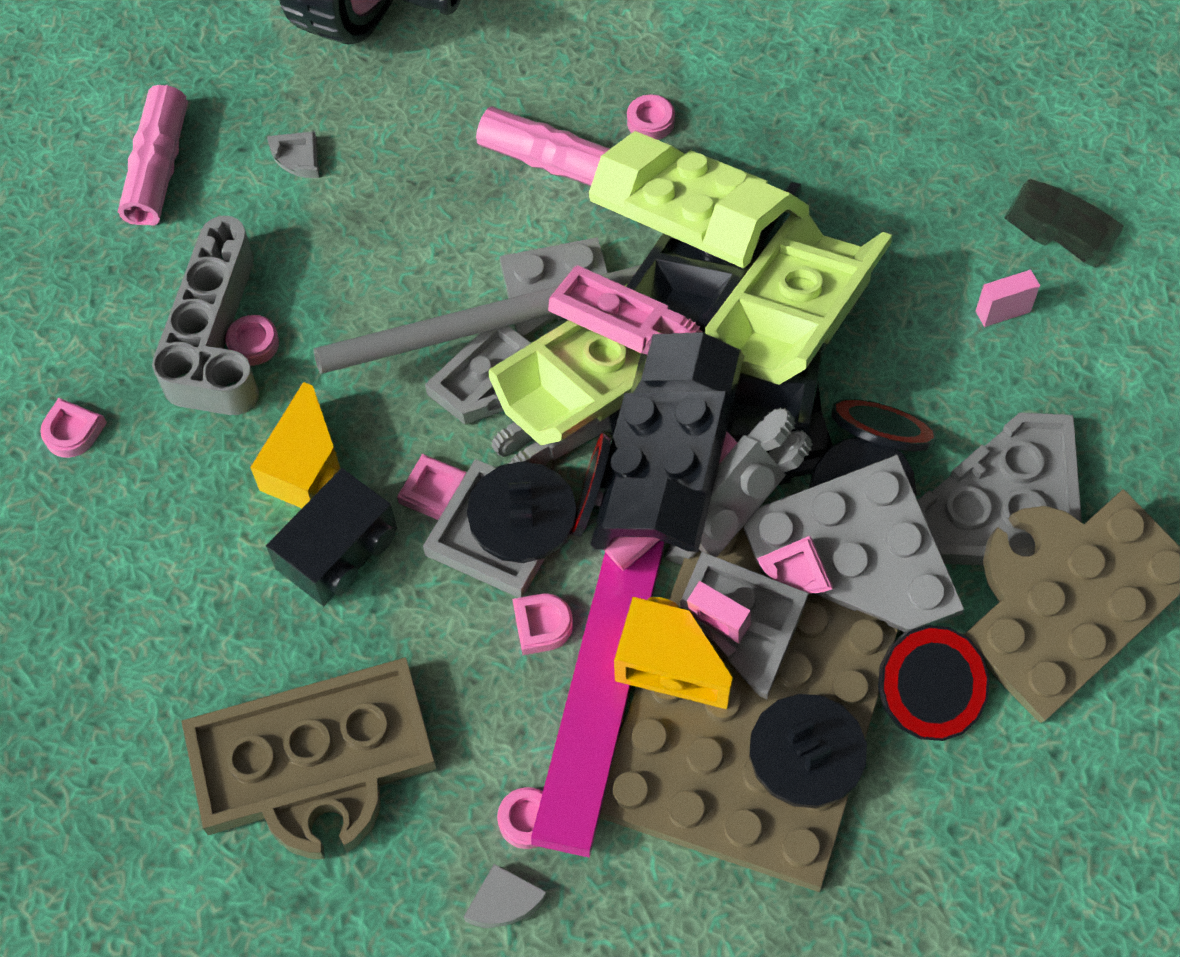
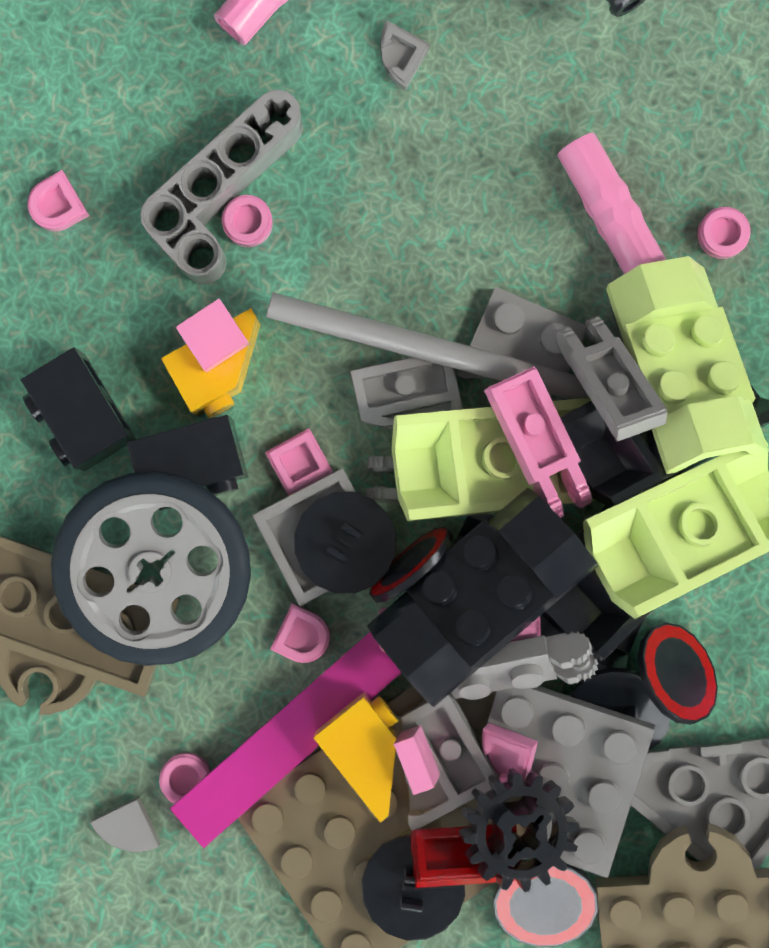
camera: 35 degrees right, 25 degrees up
(202, 562) = (76, 410): none -> black brick
(284, 416) = (212, 335): none -> bright pink tile
(340, 708) = (135, 500): none -> wedge
(643, 235) = (612, 380): none -> light grey hinge
(829, 677) = (441, 858): none -> red tile
(834, 616) = (533, 811): none -> black gear

